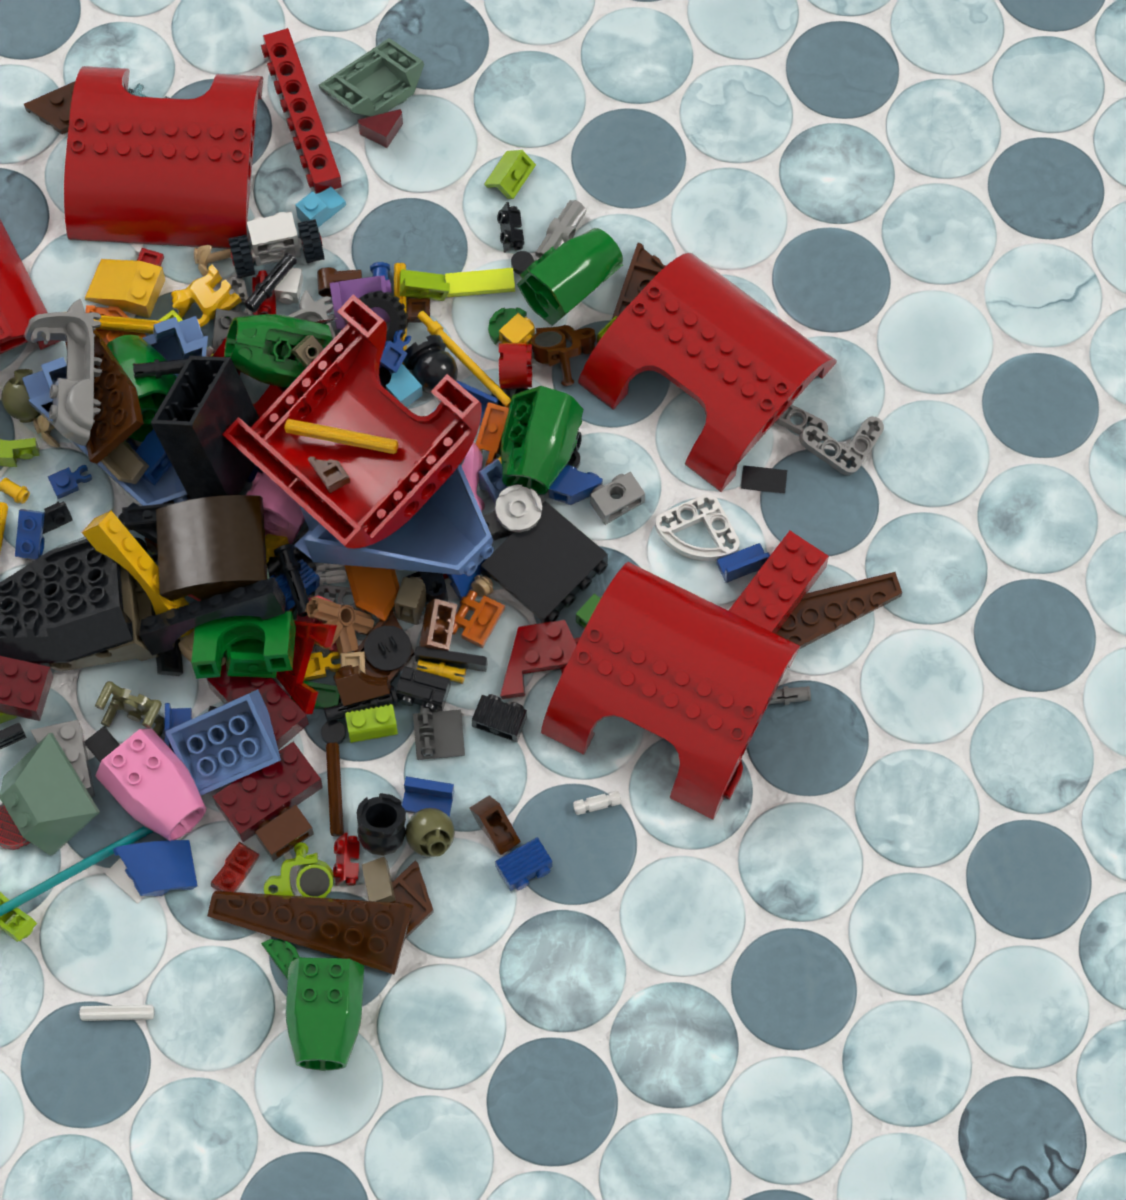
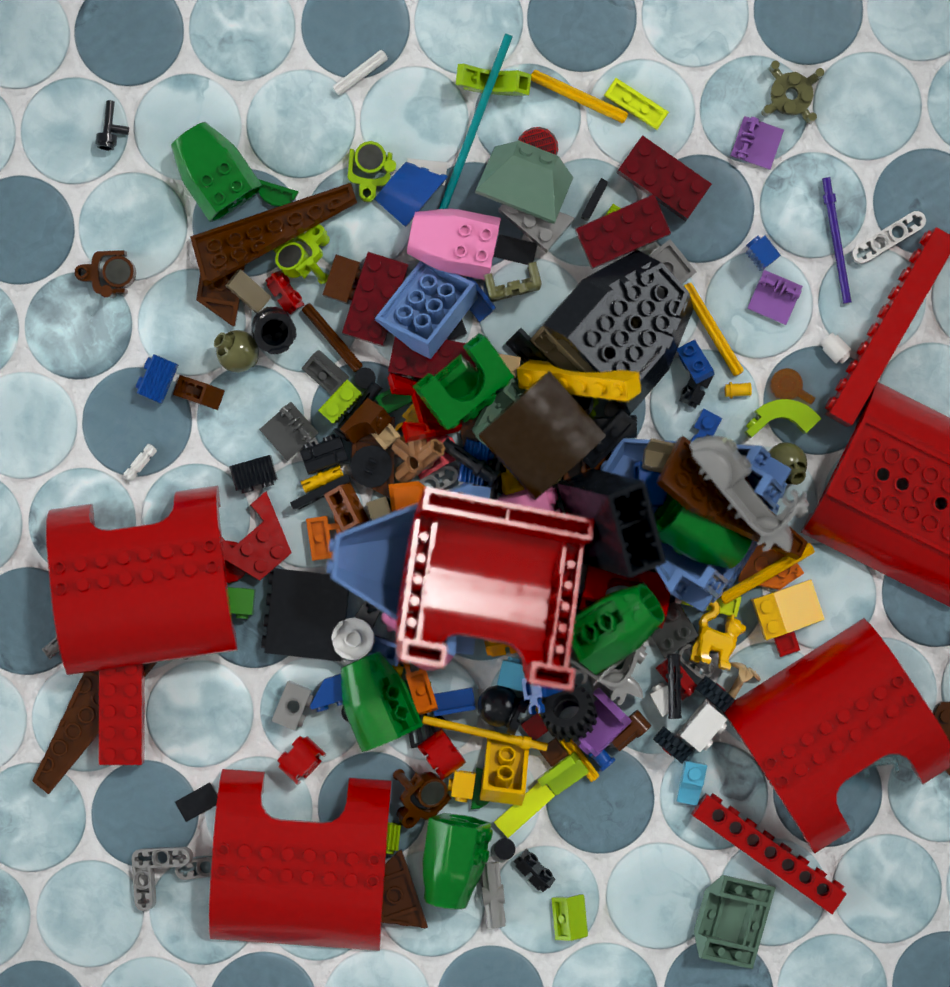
camera: 145 degrees right, 20 degrees up
(158, 368) = (683, 543): black pin -> none
(170, 922) = (370, 159): none -> lime piece
(236, 869) = (357, 229): clear red slope -> none
(259, 599) = (476, 416): black arch -> none
(302, 348) = (585, 634): dark tan plate -> none
(330, 473) = (490, 545): reddish brown tile -> none
(341, 436) = (505, 581): yellow axle -> none
(365, 763) = (325, 372): none -> dark grey slope
(381, 127) = (695, 883): dark red slope -> none
(403, 1121) = (106, 140): none -> black piece
(417, 335) = (534, 726): none -> red tile
(427, 794) = (261, 378): blue panel -> none
(473, 317) = (504, 773): none -> yellow slope
(487, 990) = (116, 271): none -> reddish brown piece
(643, 444) = (301, 759): none -> red brick
(708, 517) = (216, 740): white beam -> none
(742, 562) = (165, 722): blue panel -> none

